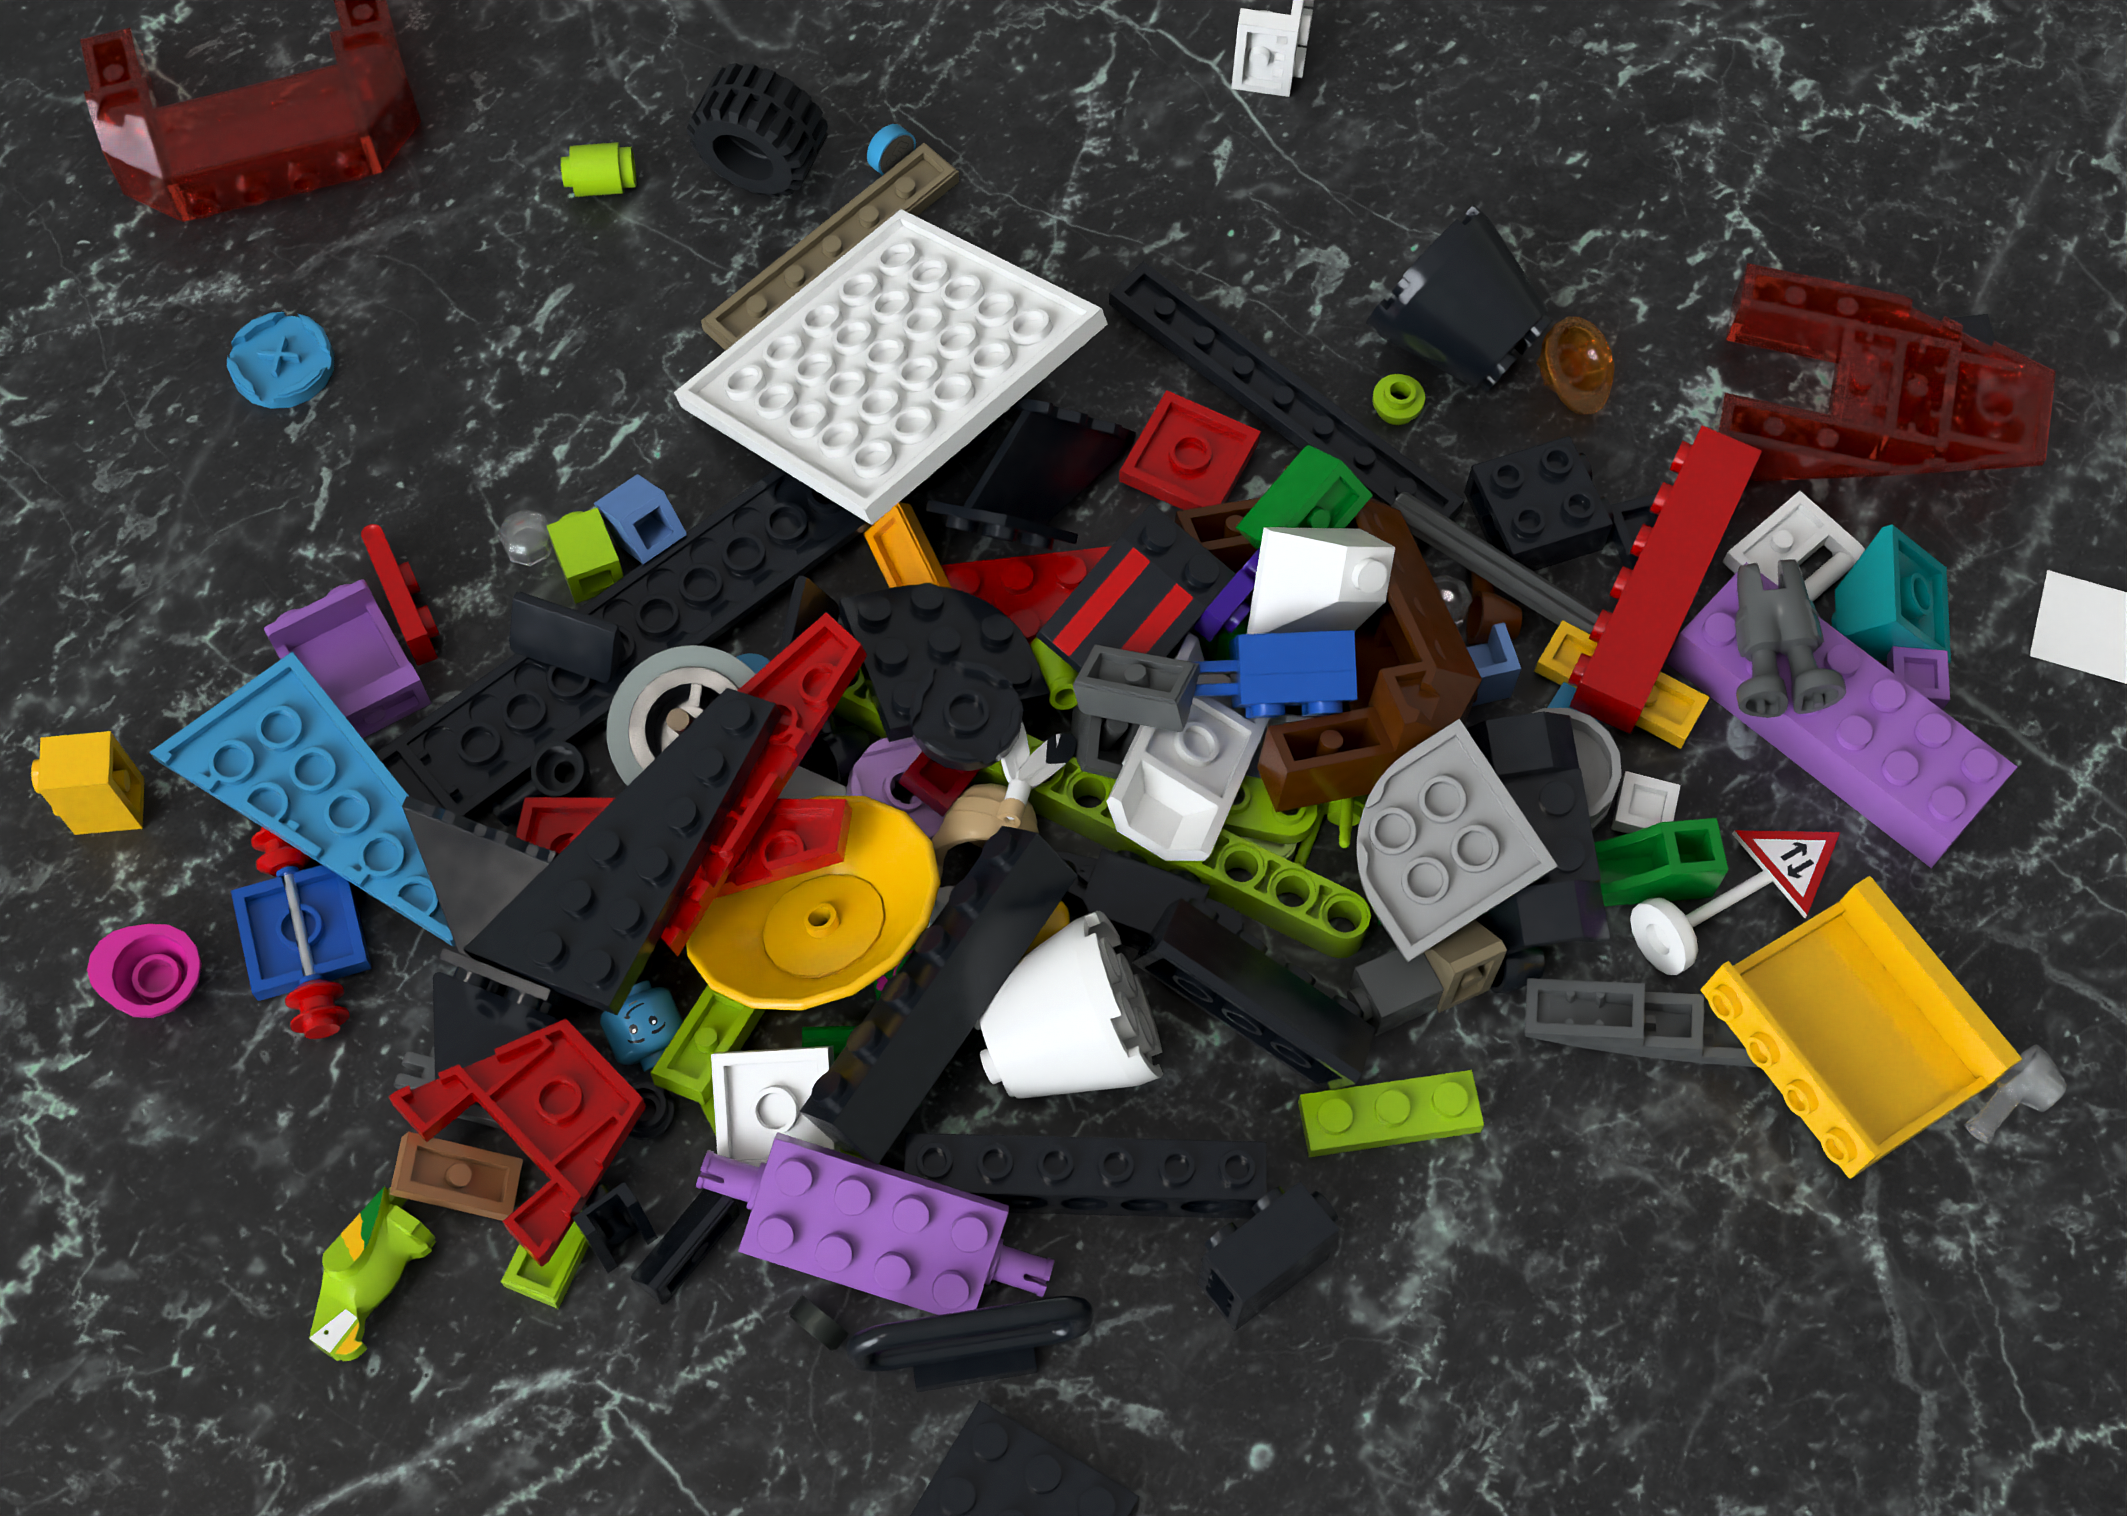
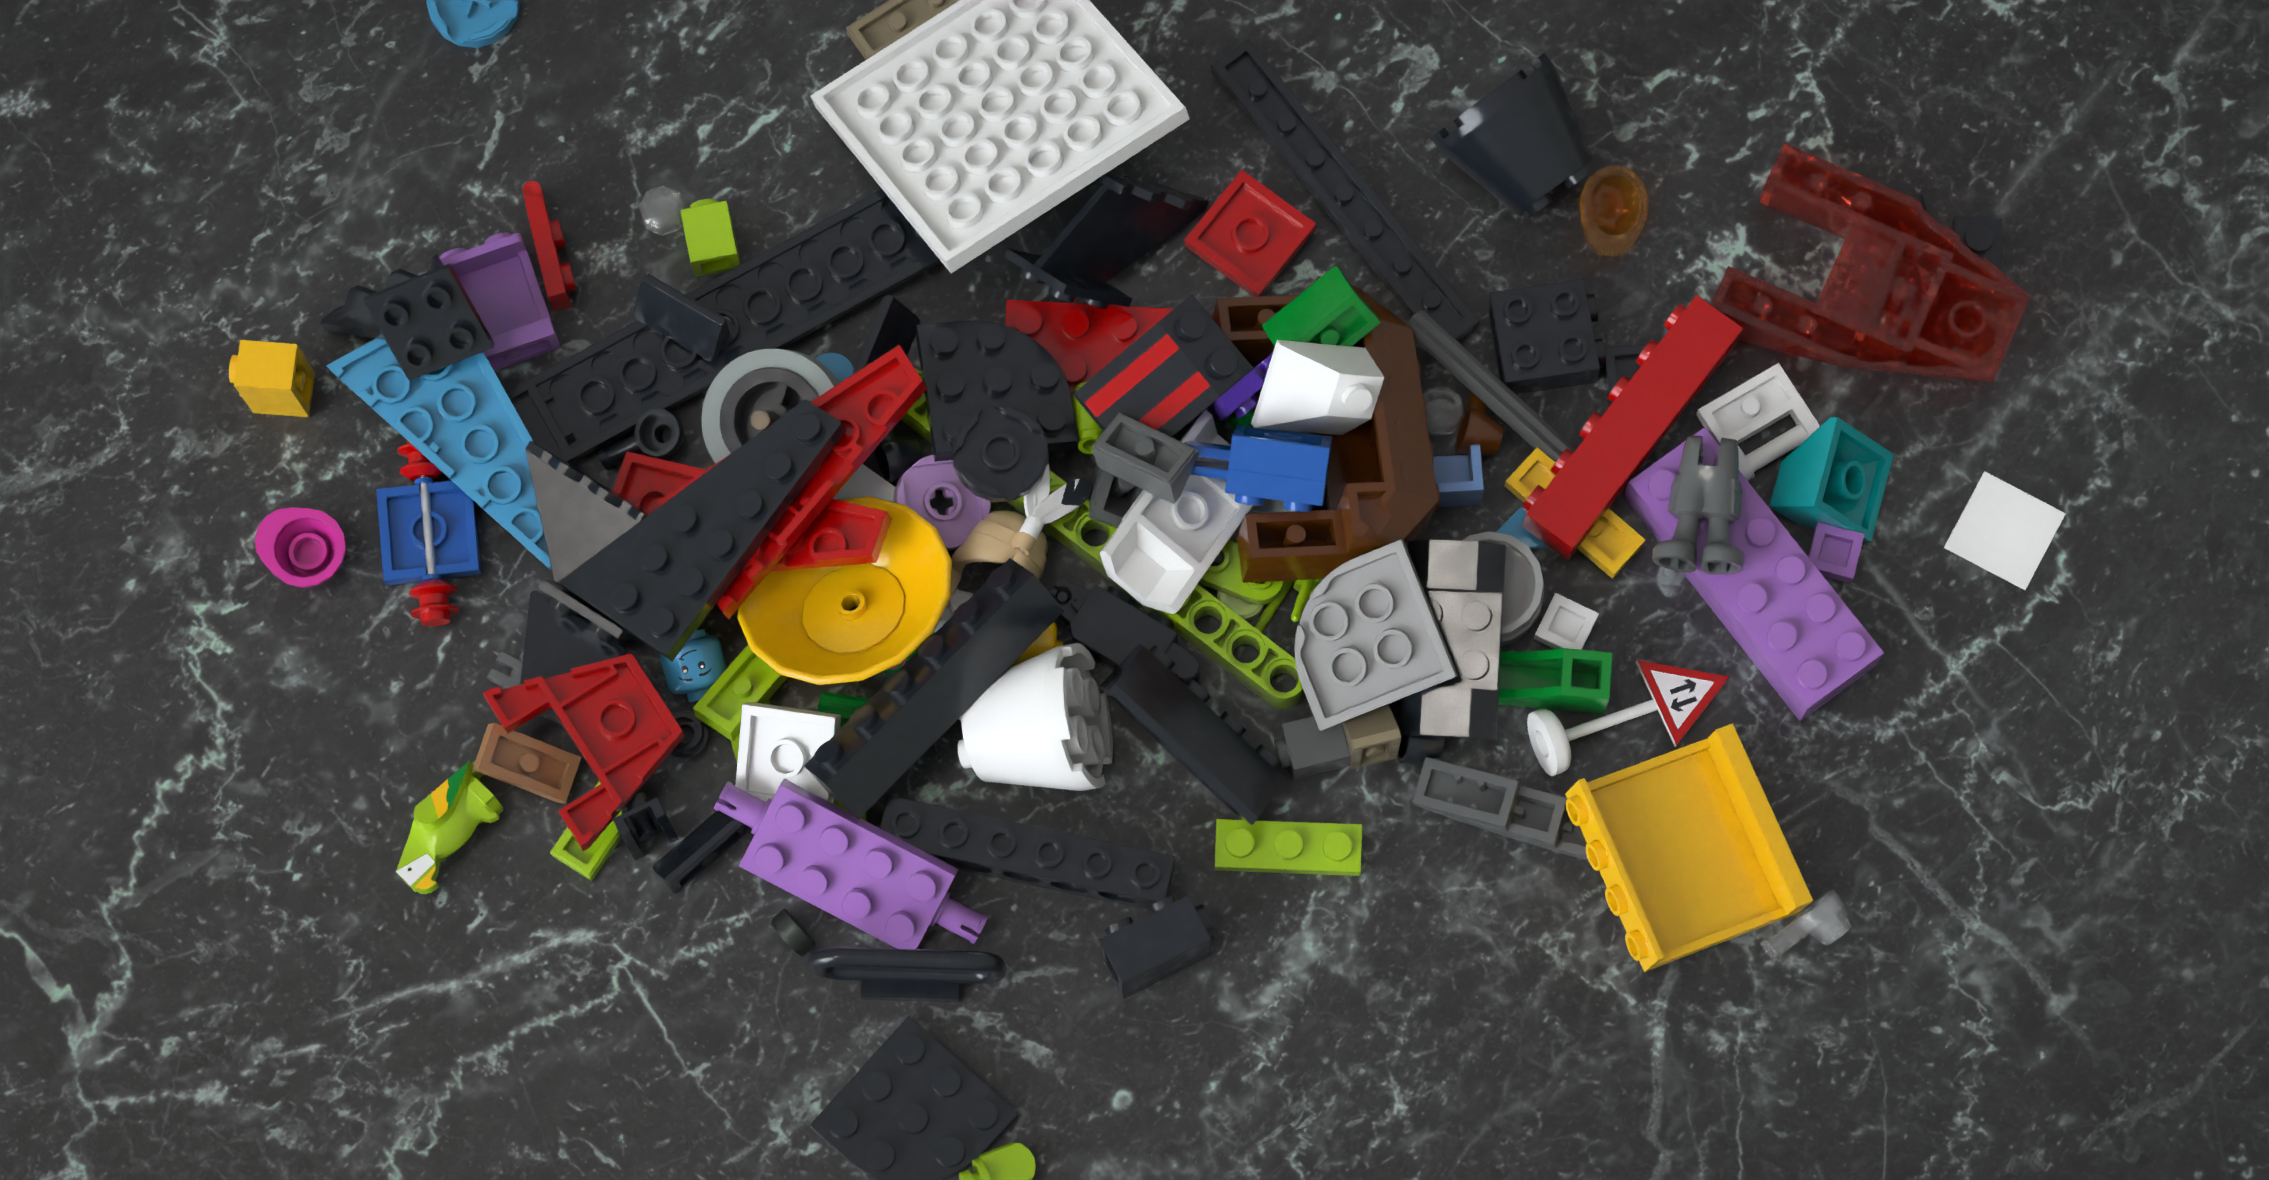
camera: 15 degrees right, 10 degrees up
(257, 674) = (419, 316): none -> black piece
(640, 518) = (761, 215): medium blue brick -> none
(904, 549) = (985, 289): light orange tile -> none
(935, 783) = (965, 505): dark red plate -> none
(1395, 410) = (1444, 222): lime plate -> none

